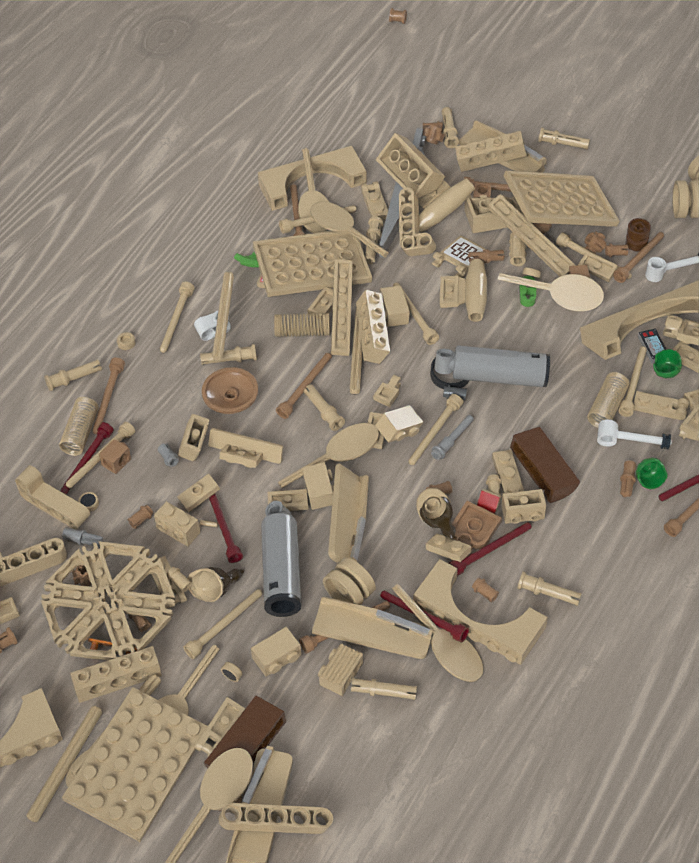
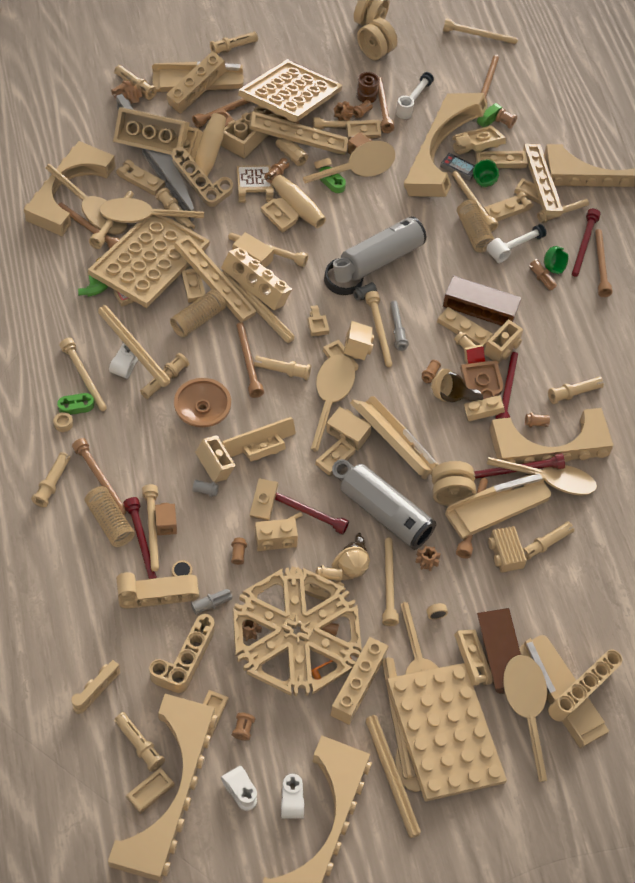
camera: 50 degrees left, 5 degrees up
(146, 335) = (76, 403): none -> bright green beam
(269, 625) = (428, 558): none -> medium nougat gear
(276, 651) = (454, 571): tan brick -> none

